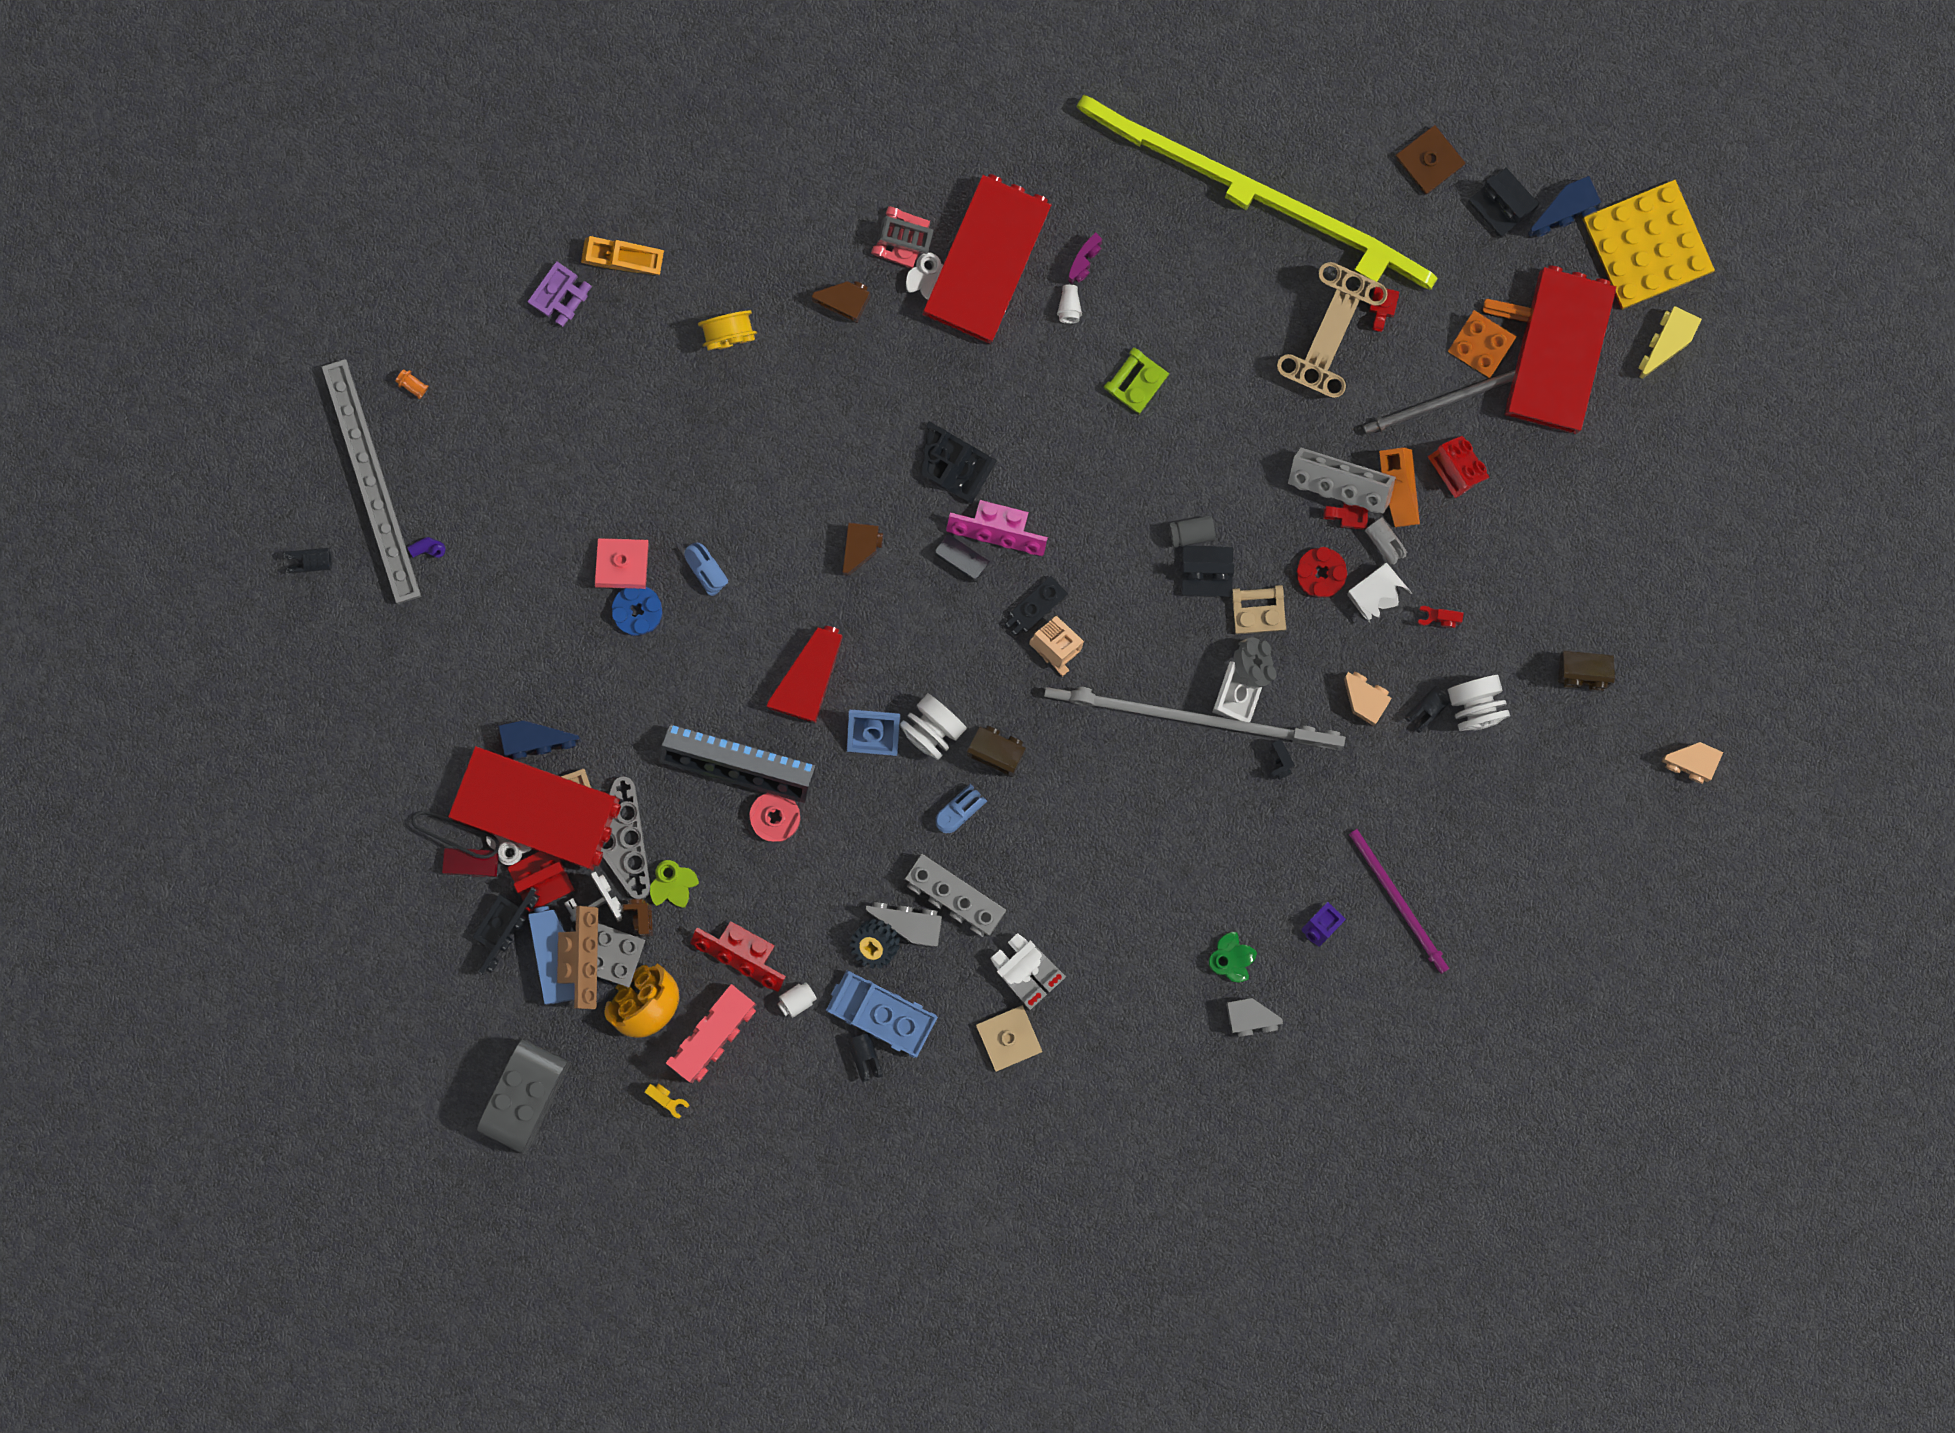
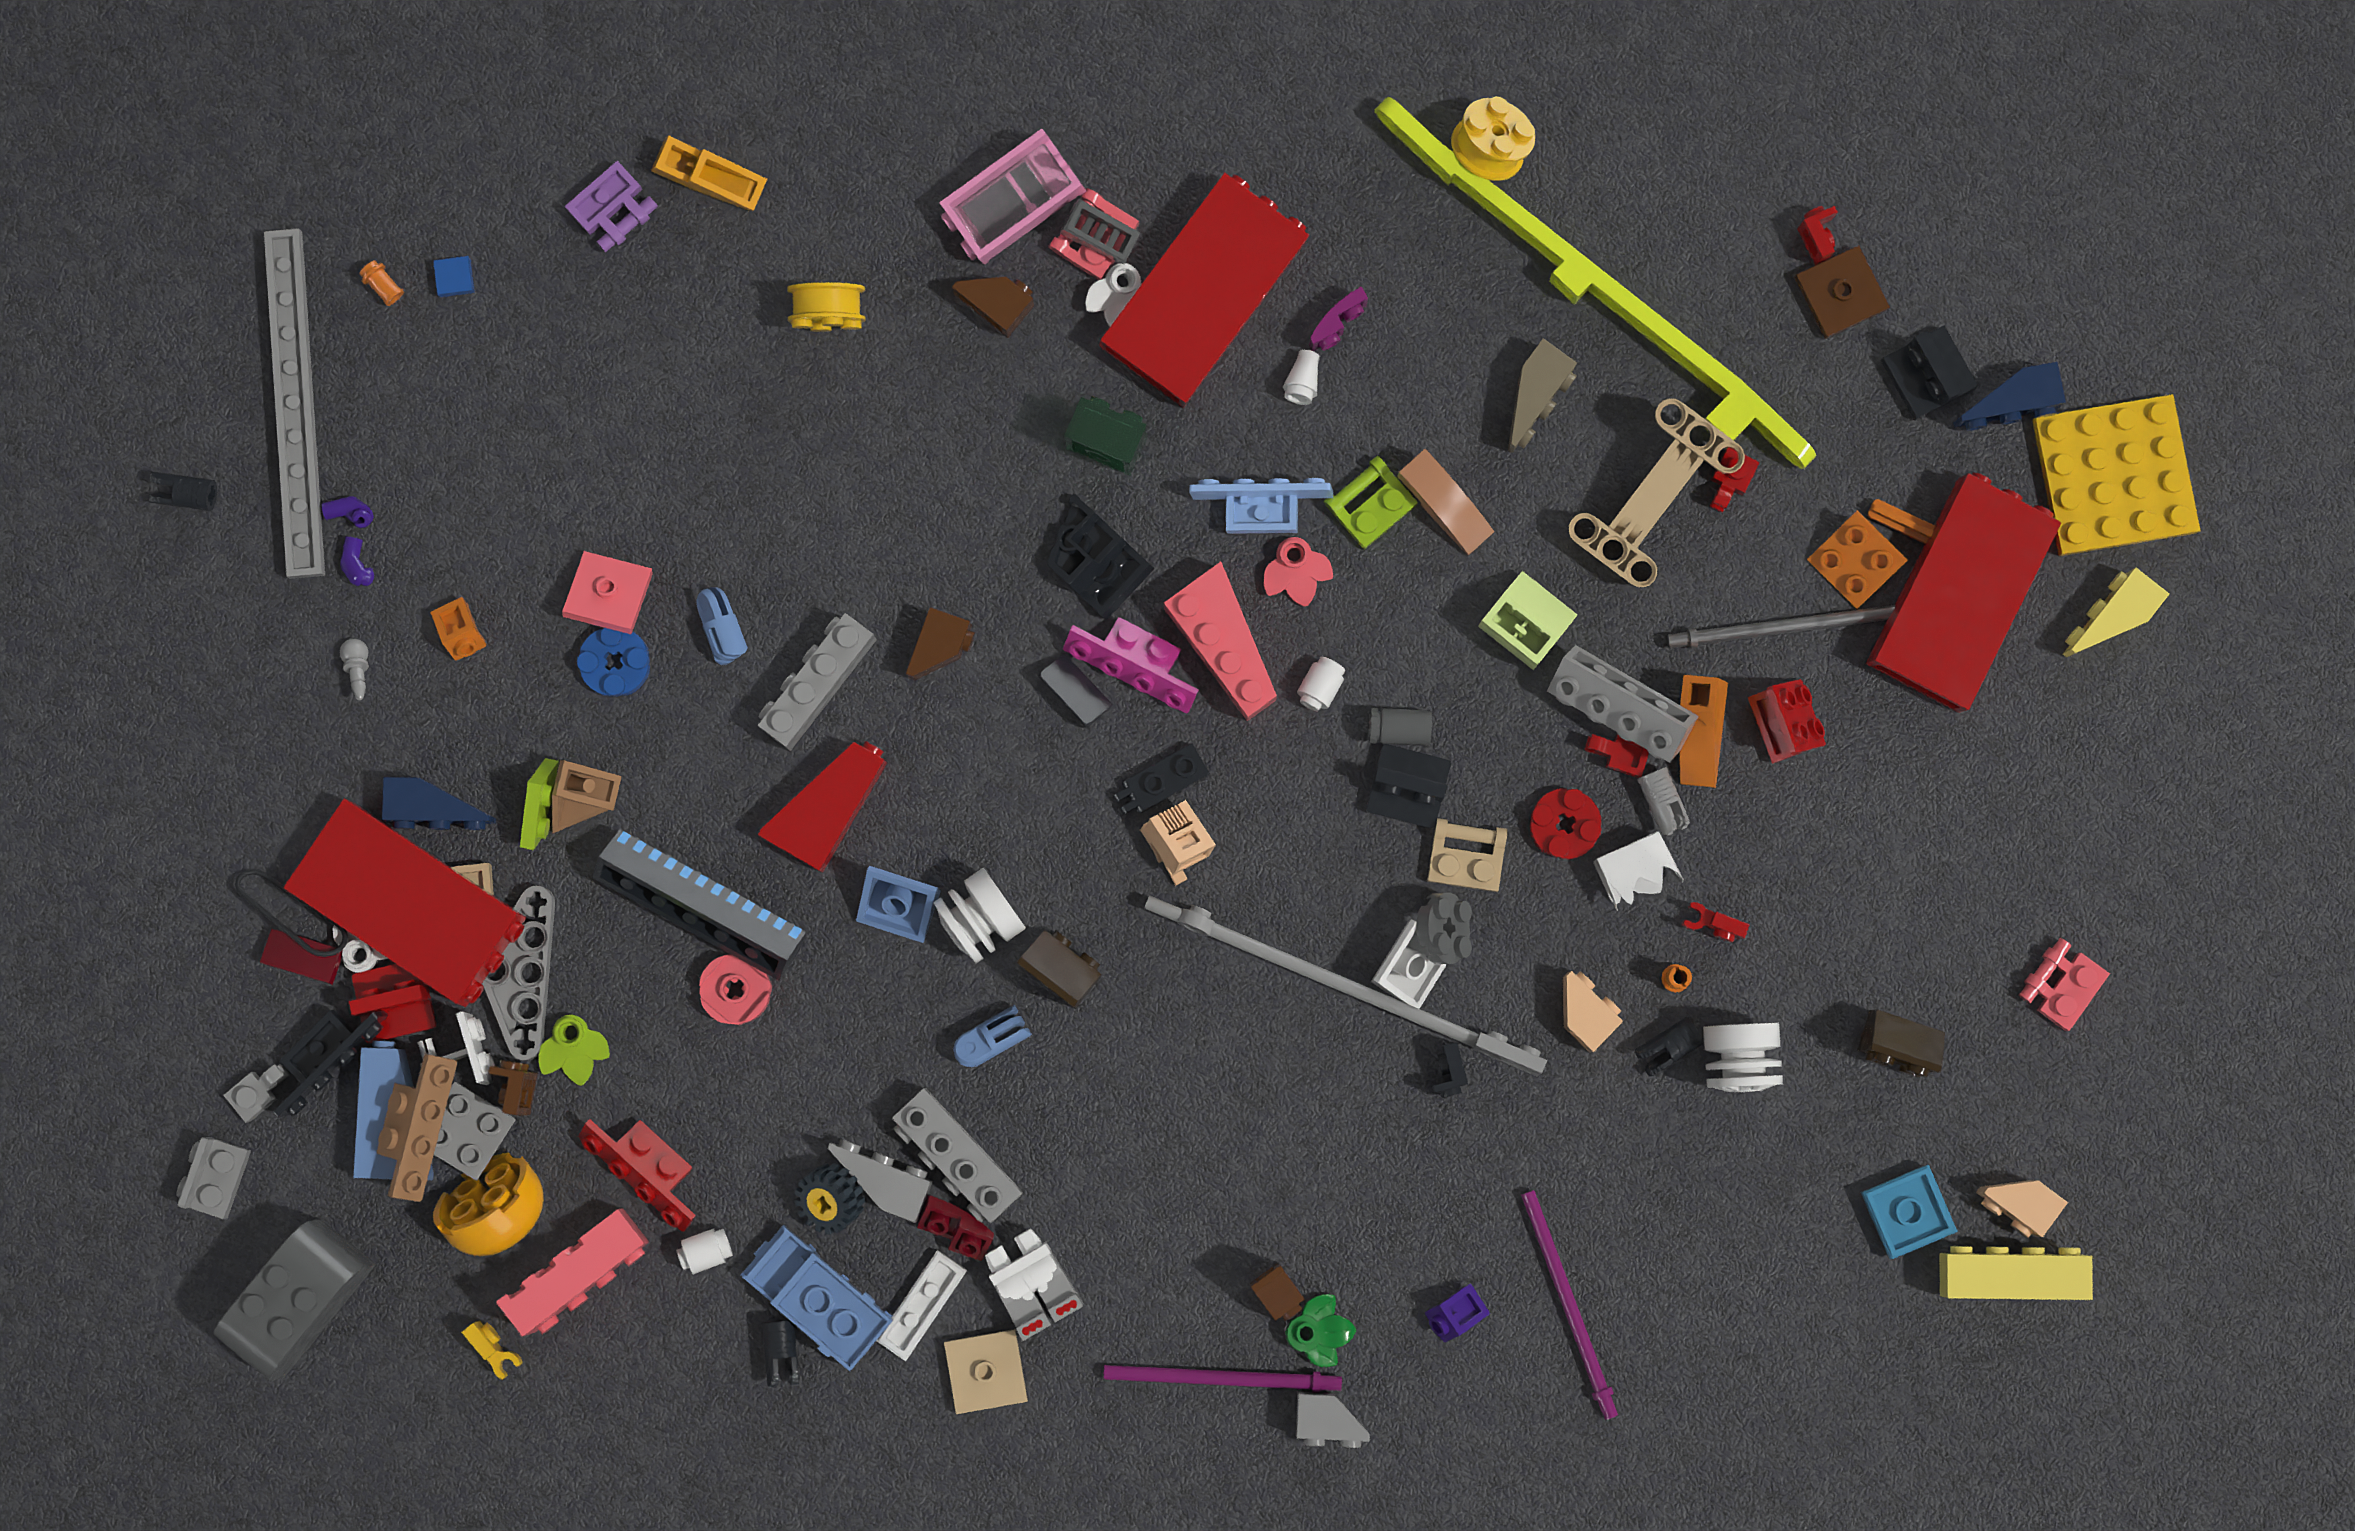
camera: 10 degrees right, 0 degrees up
(438, 585) = (352, 566): none -> dark purple arm
(445, 1028) = (213, 1177): none -> light grey bracket
(455, 647) = (354, 655): none -> light grey bar
(459, 965) = (254, 1093): none -> light grey plate
(460, 368) = (454, 276): none -> blue tile
(523, 612) = (457, 629): none -> orange bracket
(610, 713) = (537, 804): none -> lime wing
(637, 706) = (581, 794): none -> medium nougat slope
(782, 591) = (817, 681): none -> light grey brick
(837, 225) = (1011, 197): none -> door
(943, 375) = (1106, 435): none -> clear green brick
(954, 1003) = (922, 1305): none -> white tile
(973, 946) = (965, 1232): none -> dark red slope
(1053, 496) = (1220, 636): none -> coral wedge
(1061, 401) = (1261, 506): none -> light blue bracket
(1096, 444) = (1297, 577): none -> coral plate
(1131, 514) = (1321, 684): none -> white brick
(1163, 108) = (1493, 139): none -> yellow wheel
(1188, 368) = (1445, 502): none -> nougat slope
(1197, 937) = (1277, 1293): none -> reddish brown slope
(1233, 271) = (1538, 383): none -> dark tan slope
(1237, 993) = (1231, 1378): none -> magenta bar
(1263, 437) = (1527, 620): none -> yellowish green slope
(1405, 127) = (1817, 239): none -> red bracket
(1419, 666) = (1668, 980): none -> orange pin
(1617, 784) = (1909, 1212): none -> dark azure plate
(1696, 609) = (2071, 992): none -> coral plate
(1700, 810) = (2016, 1275): none -> light yellow brick

